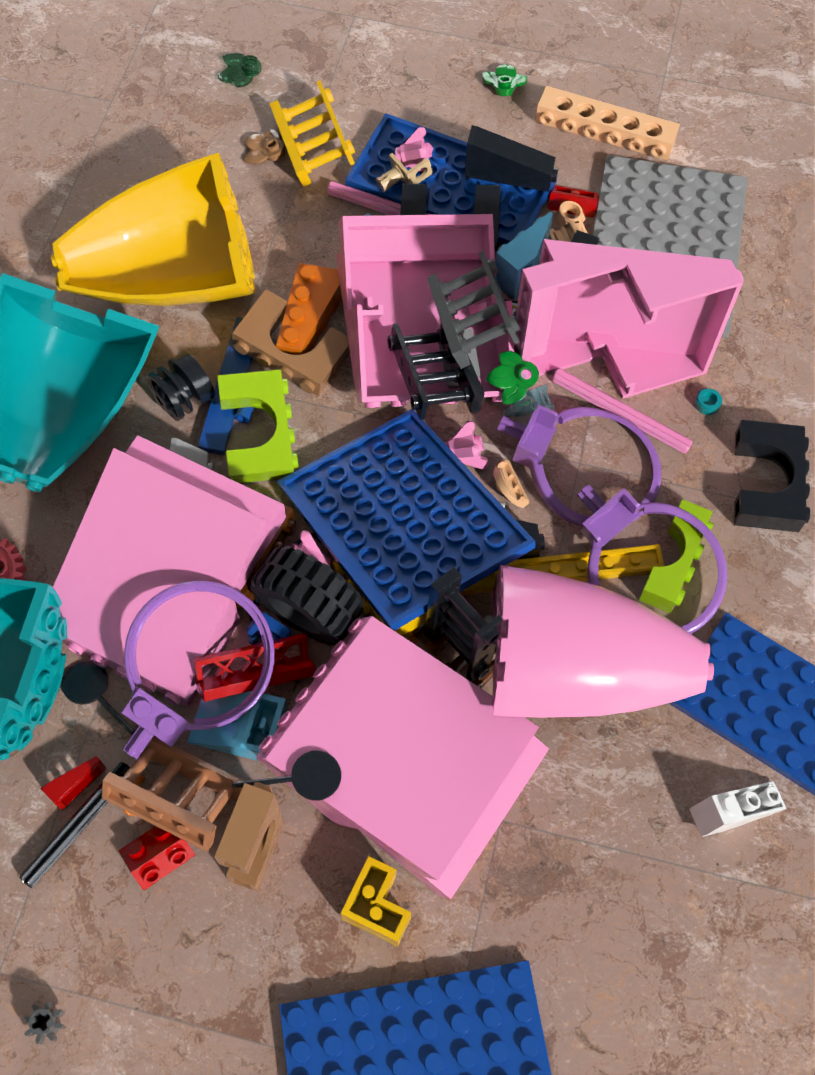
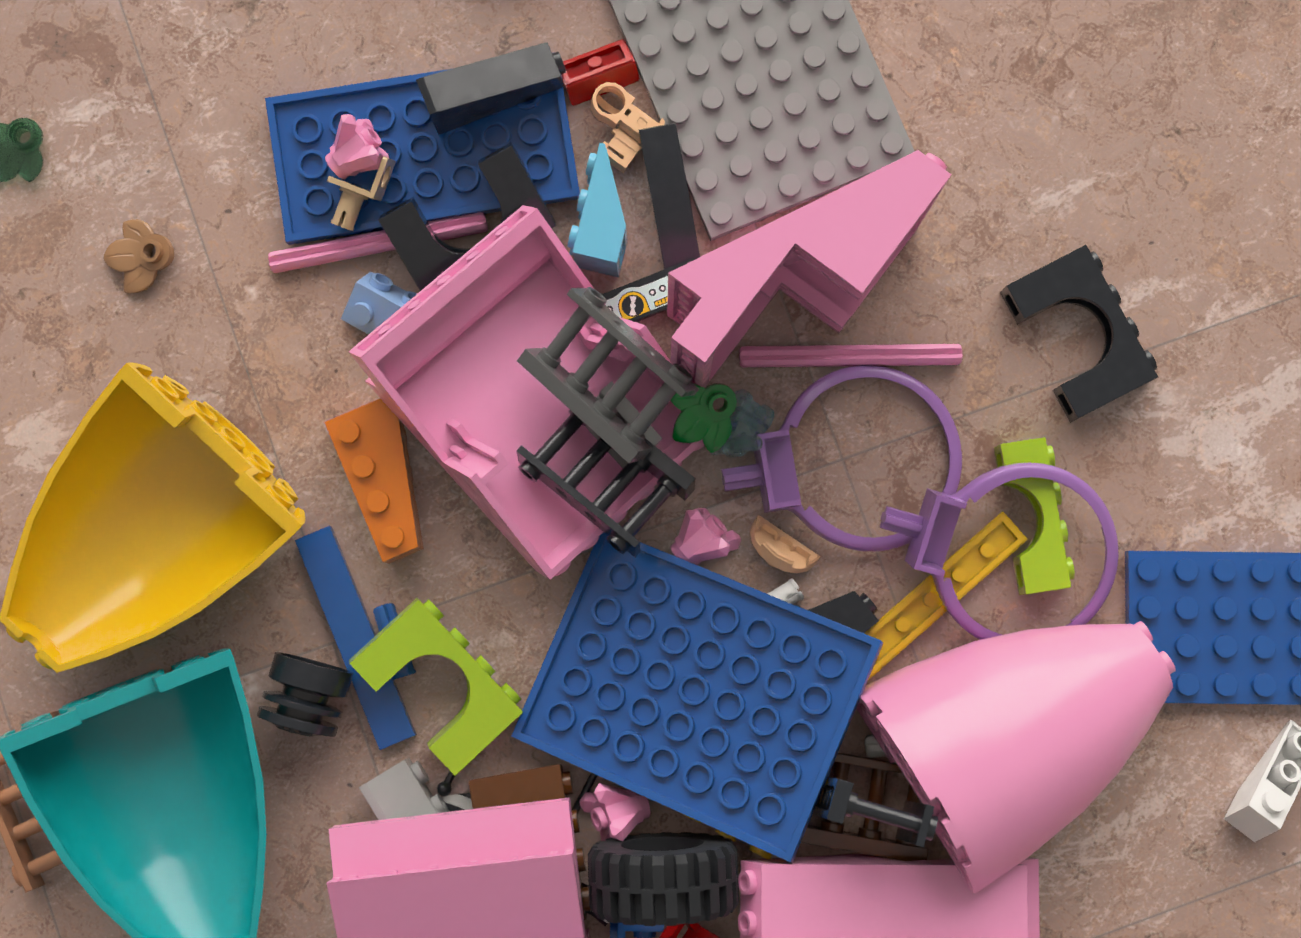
camera: 30 degrees left, 20 degrees up
(291, 132) = (160, 215): yellow fence -> none
(309, 370) = (346, 564): medium nougat arch -> none
(708, 401) = (945, 271): teal tile -> none

